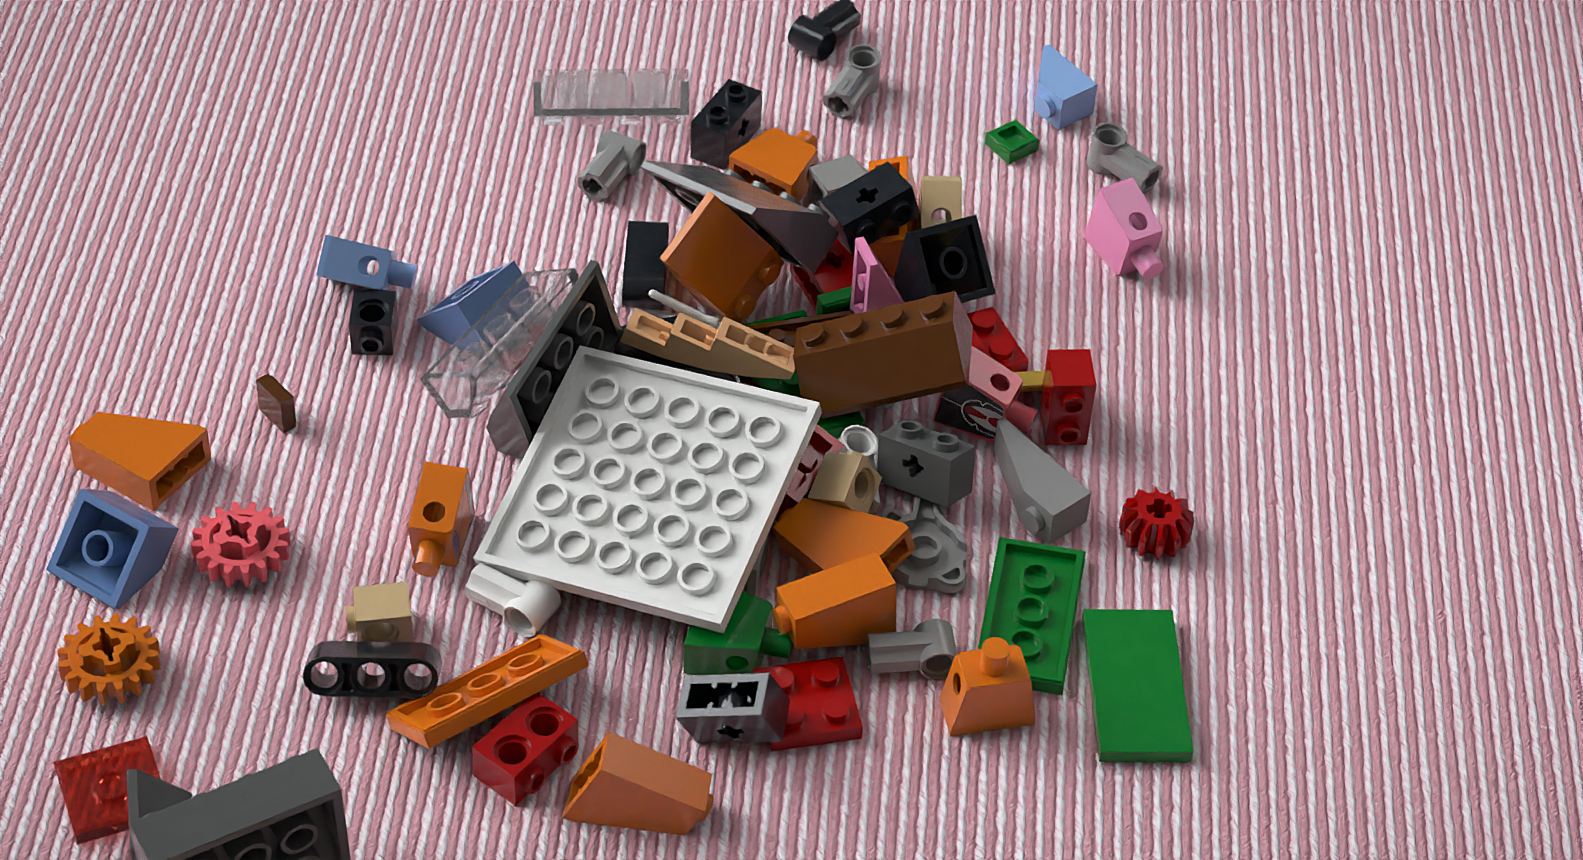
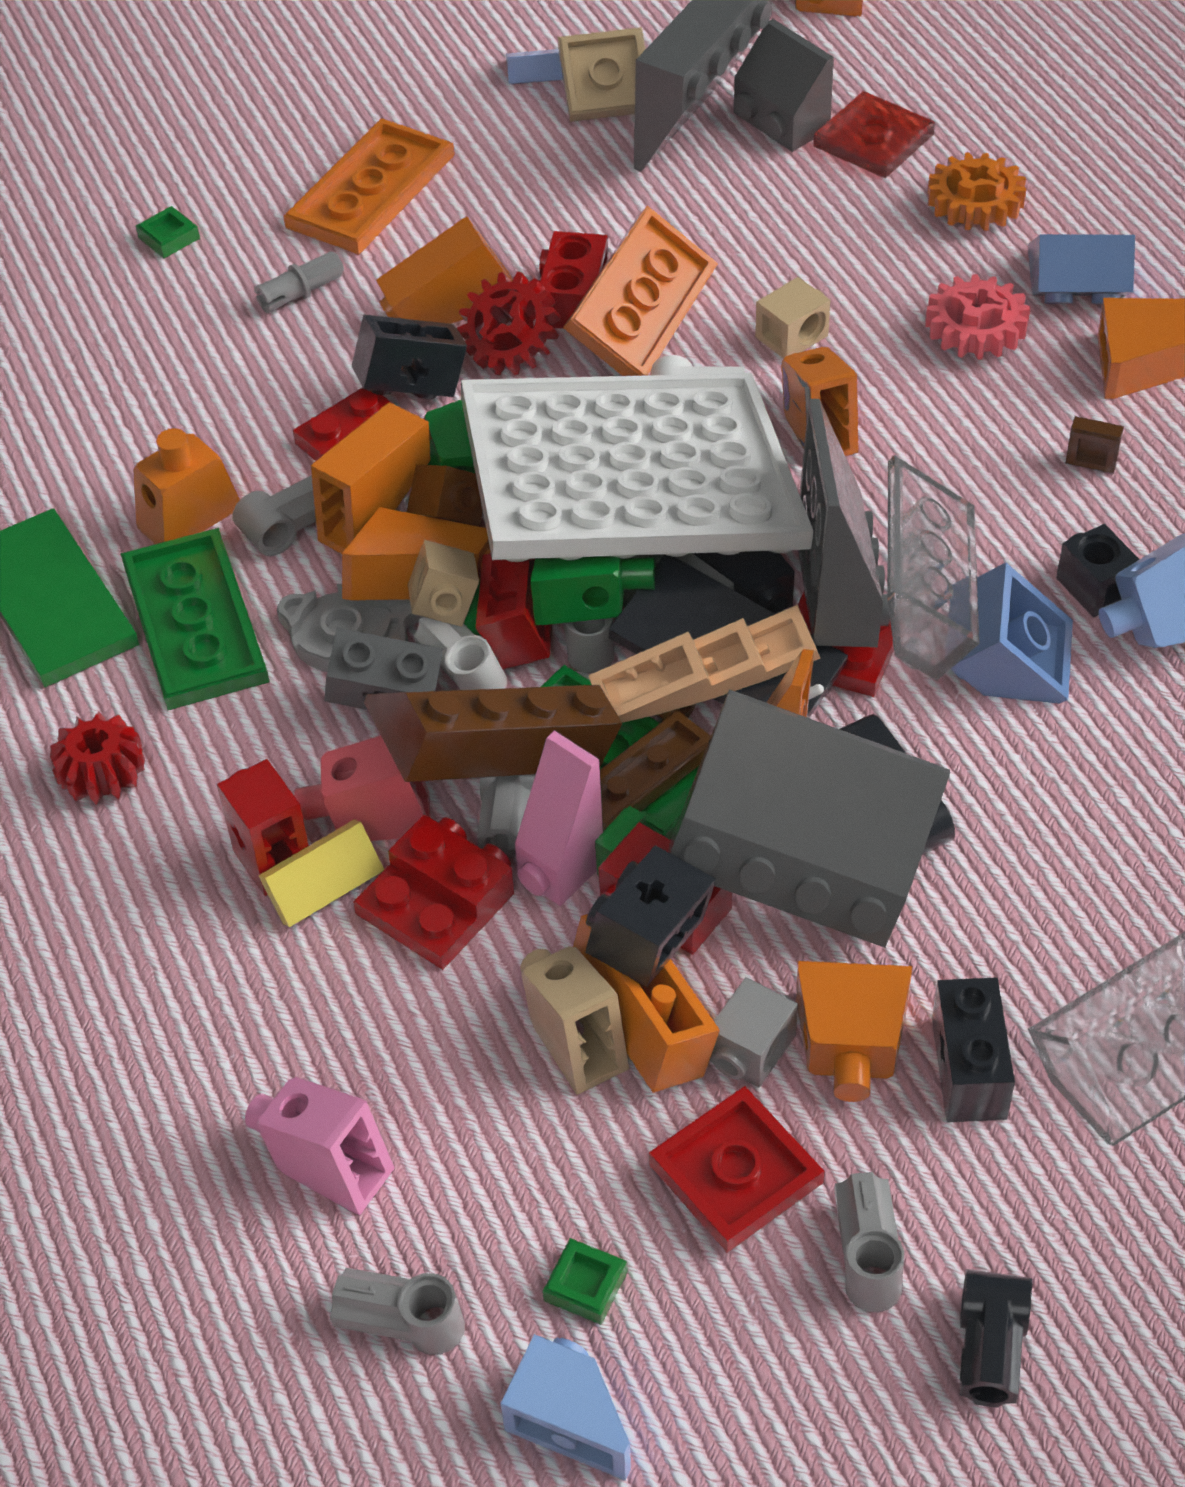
camera: 155 degrees right, 5 degrees up
(354, 682) = (753, 270): black beam -> none
(614, 159) = (1058, 923): light grey piece -> none
(621, 710) = (506, 302): none -> red gear
(772, 562) = (445, 494): none -> reddish brown brick
(896, 135) = (736, 1168): none -> red plate
(944, 261) = (516, 911): black slope -> none
(1042, 491) = (240, 728): light grey slope -> none

